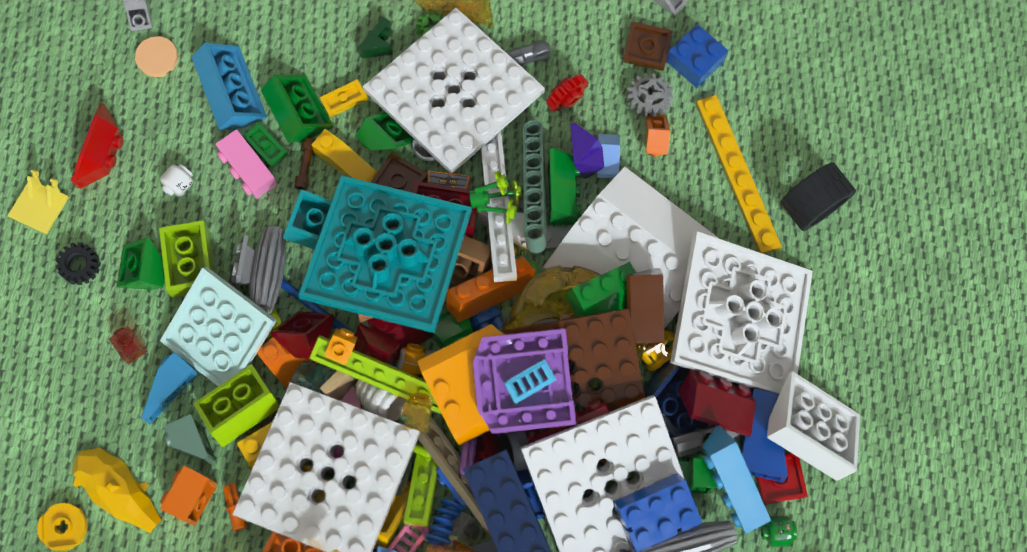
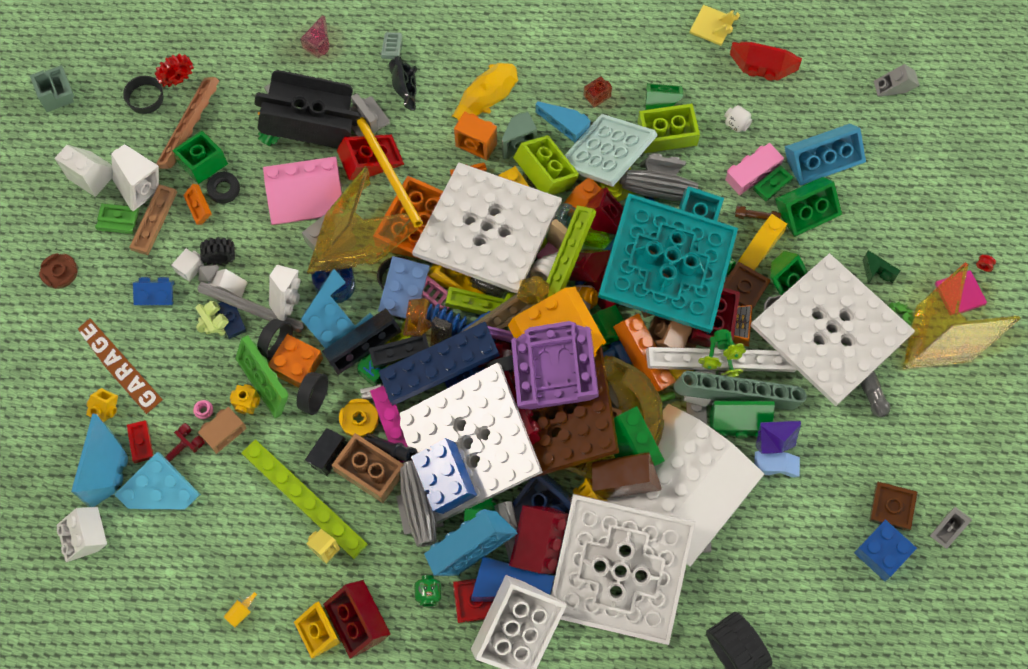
camera: 95 degrees right, 5 degrees down
(54, 538) = (462, 66): yellow plate -> none
(78, 251) = (665, 63): black tyre -> none
(156, 56) = (850, 100): light nougat tile -> none
(341, 345) = (588, 227): light orange bracket -> none
(343, 98) = (820, 241): yellow plate -> none
(511, 389) = (545, 352): medium azure slope -> none
(567, 93) = (835, 425): red gear -> none
(649, 95) = (834, 509): light grey gear -> none
(657, 135) = (801, 508): orange slope -> none
(738, 175) = (765, 584): yellow plate -> none

